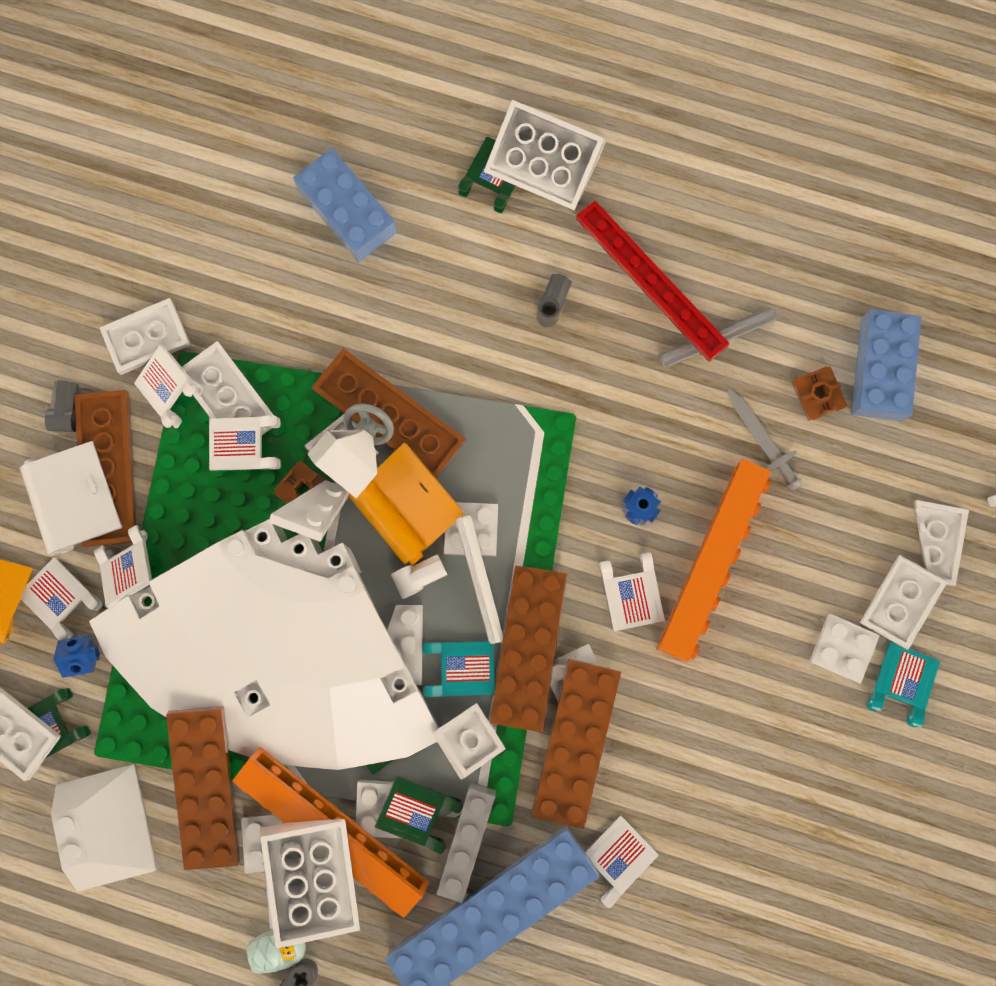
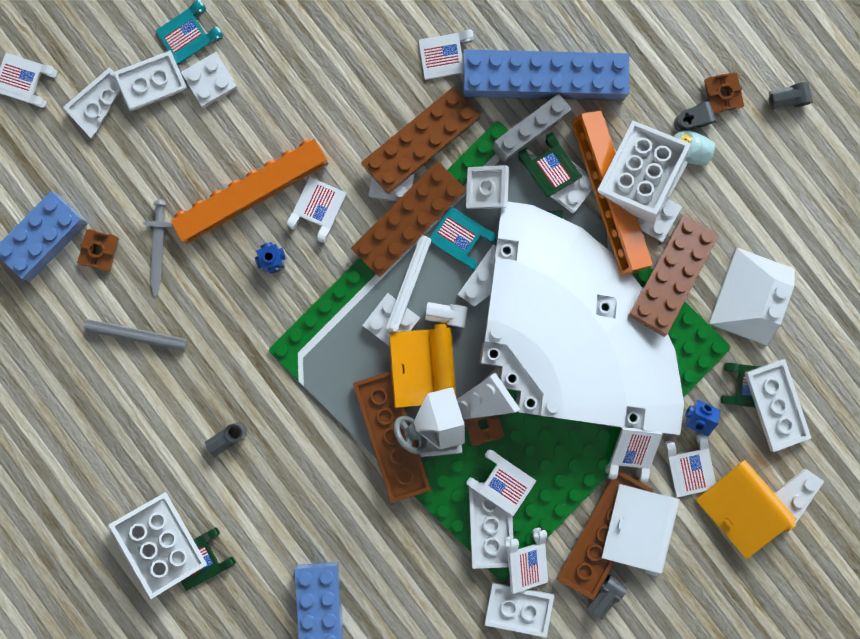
camera: 150 degrees left, 5 degrees up
(652, 281) = (150, 404): red plate -> none

